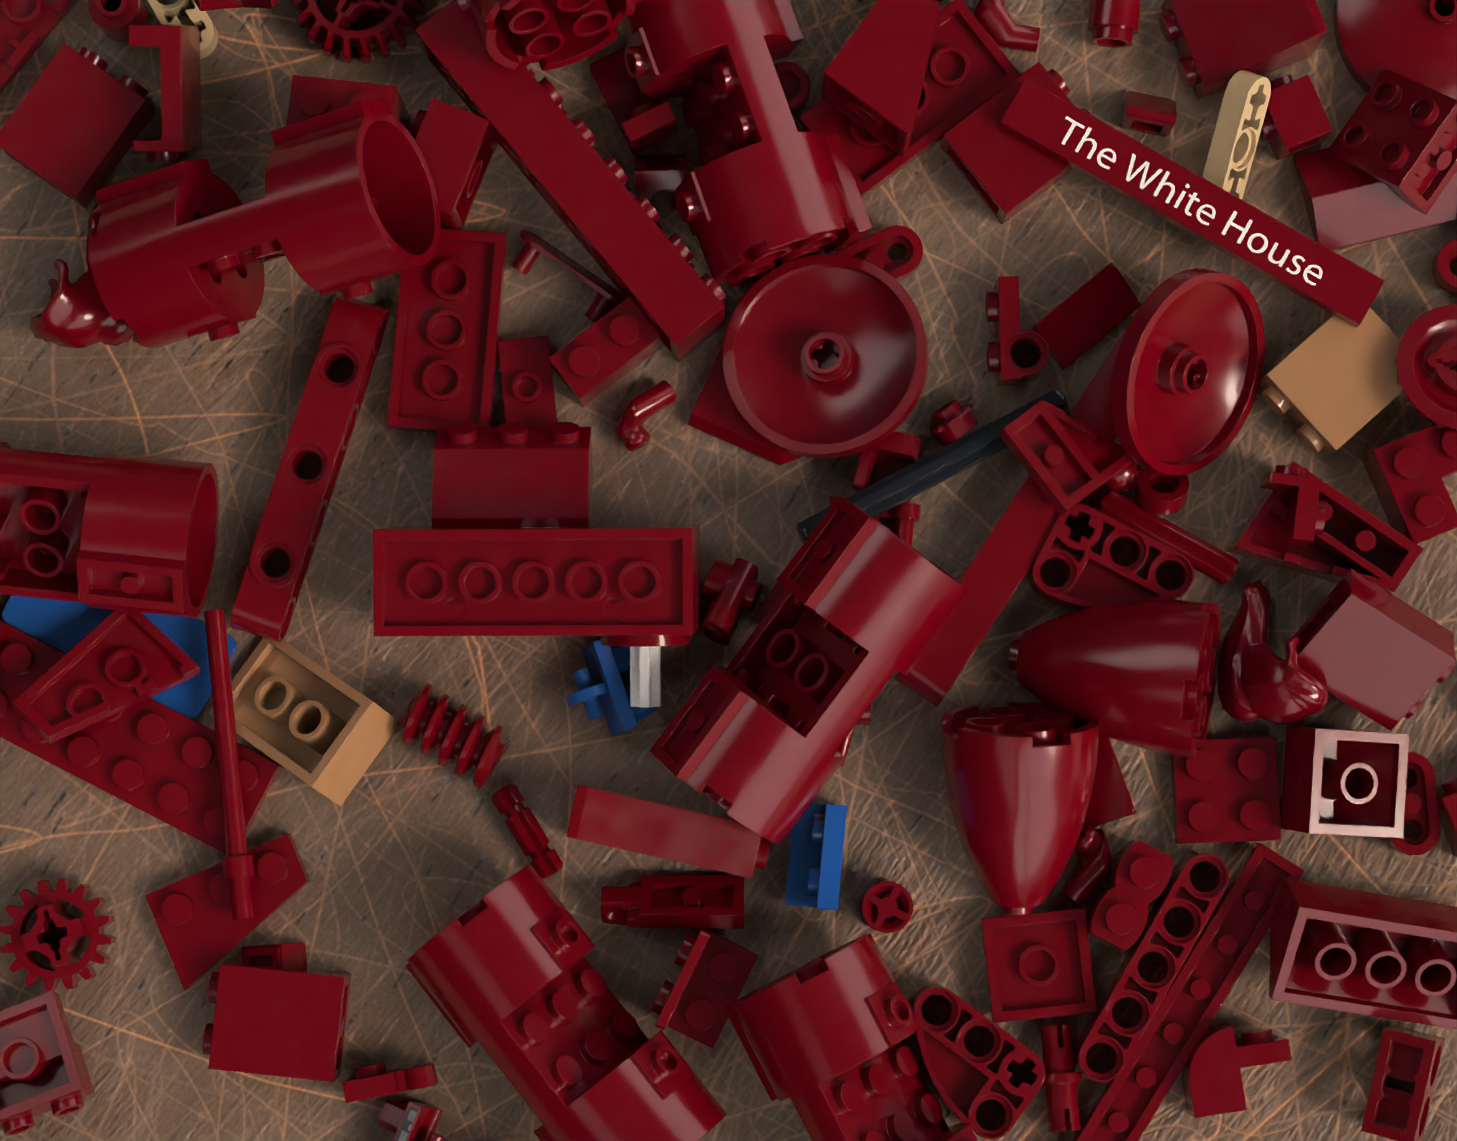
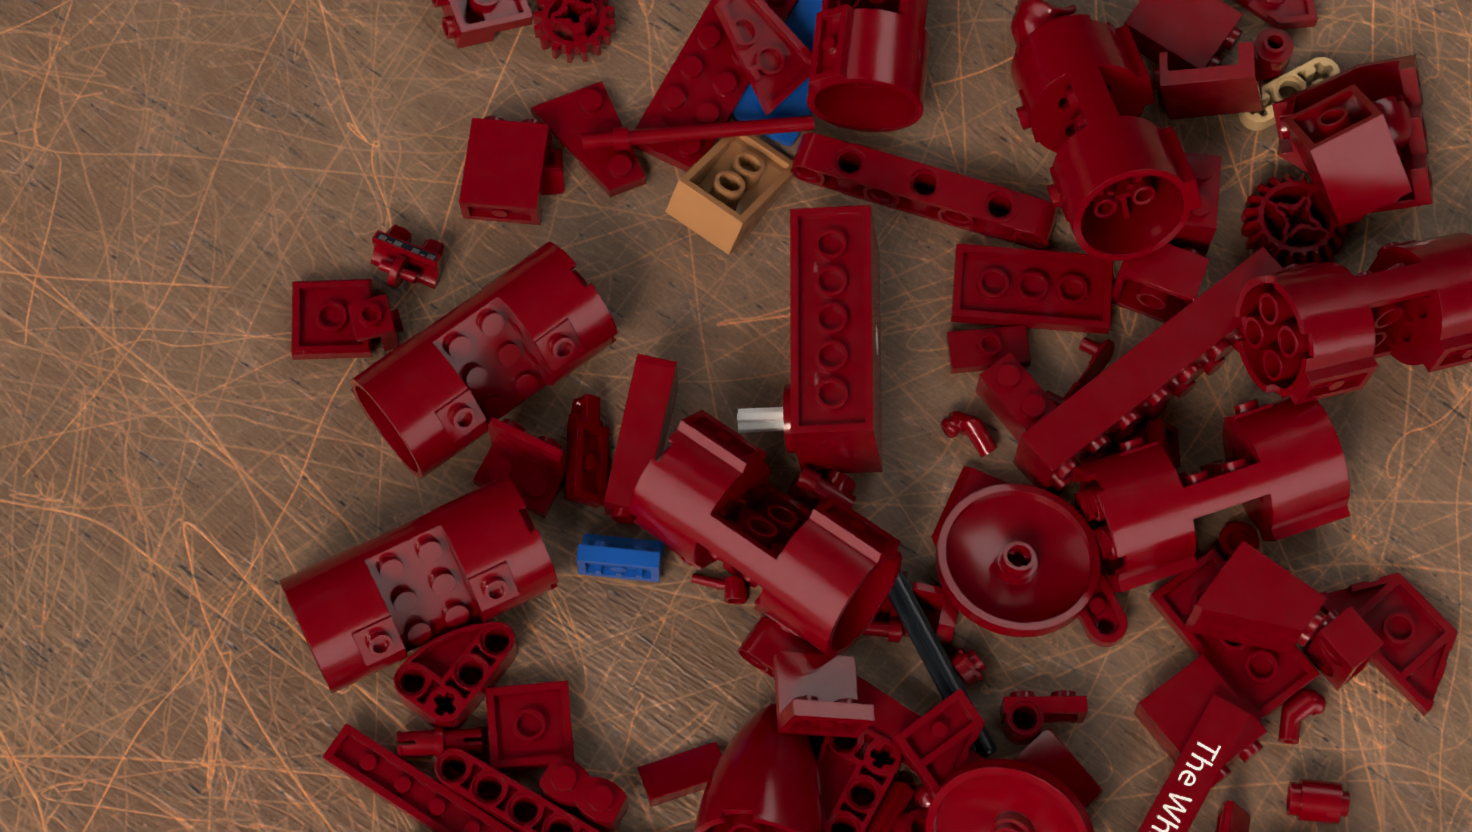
camera: 85 degrees right, 15 degrees down
(375, 1081) = (458, 237): dark red plate -> none
(452, 736) = (715, 289): dark red piece -> none
(512, 476) = (917, 328): dark red slope -> none
(527, 831) = (646, 344): dark red axle -> none
(605, 667) = (749, 387): blue hips -> none
(639, 117) = (1204, 429): dark red bracket -> none
(893, 909) = (576, 602): dark red wheel -> none
(1013, 604) = (819, 695): none -> dark red bracket
(1018, 795) = (666, 703): dark red cylinder -> none
(1095, 863) = (620, 774): dark red arm -> none

